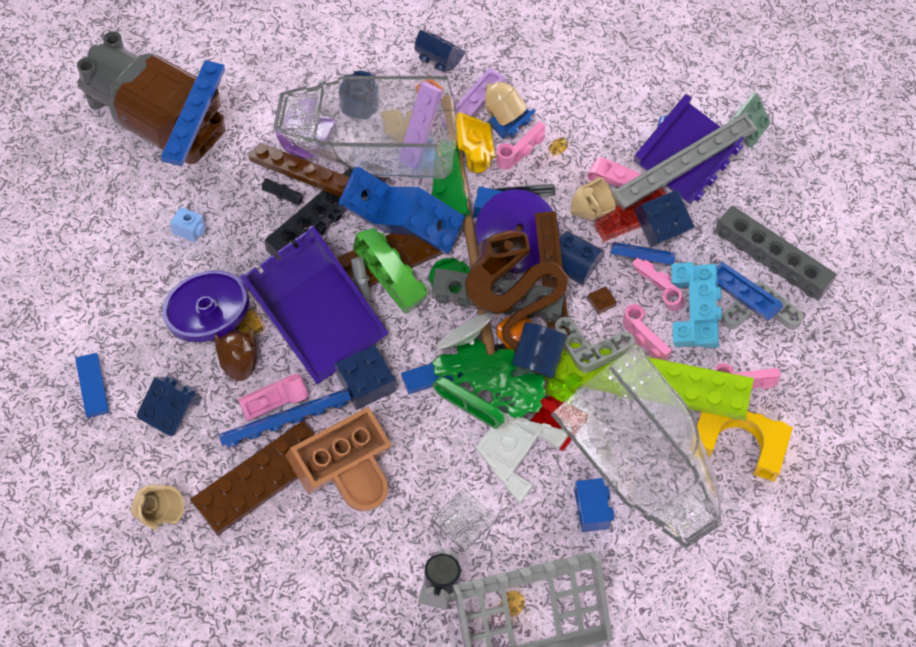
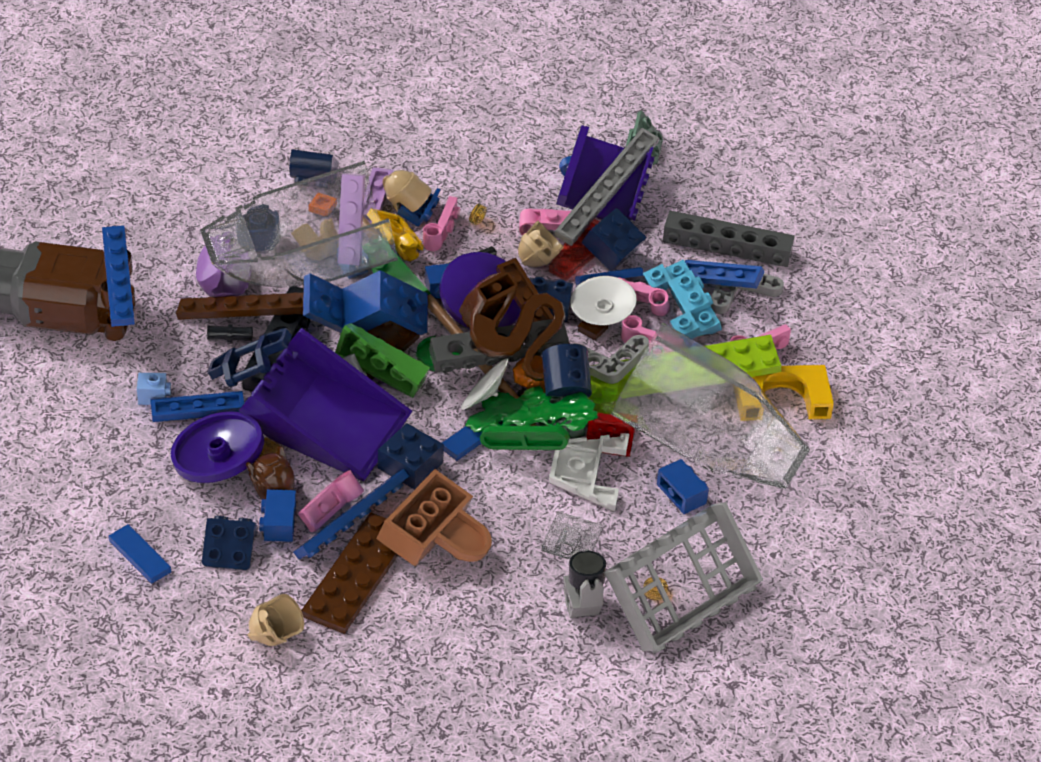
camera: 25 degrees left, 15 degrees down
(215, 255) = (195, 406): none -> blue plate
(222, 394) = (279, 515): none -> blue brick
(288, 224) = (227, 362): none -> dark blue bar
(620, 280) = (603, 300): none -> white hat

